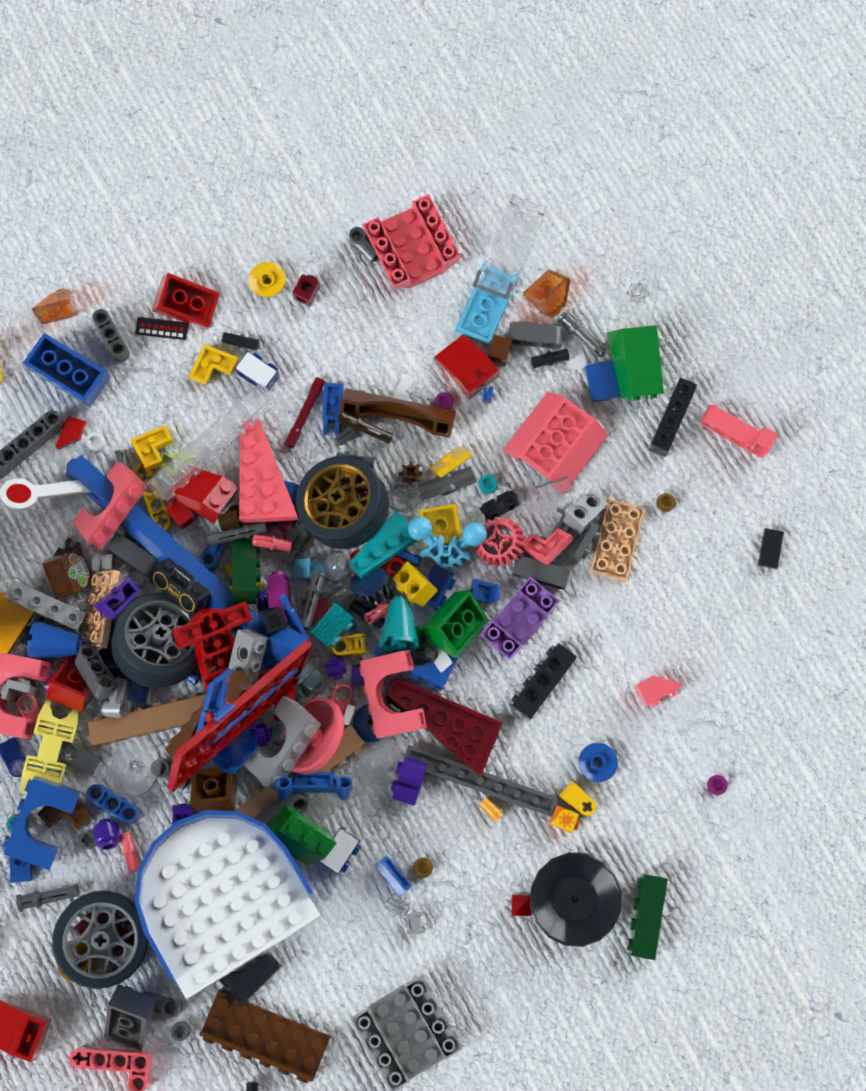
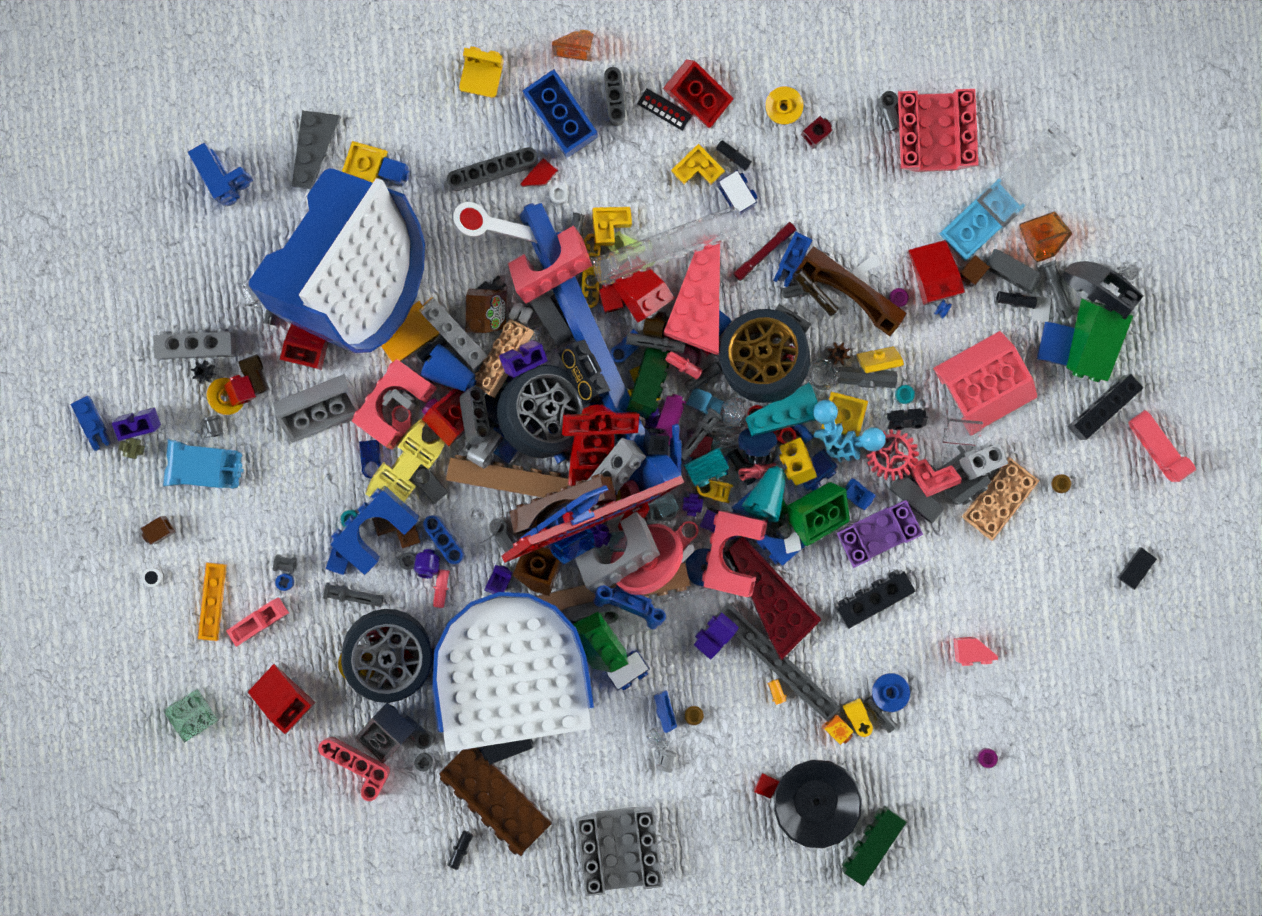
camera: 20 degrees right, 10 degrees up
(598, 788) = (880, 715): none -> dark grey pin
(604, 311) = (1088, 276): none -> black slope

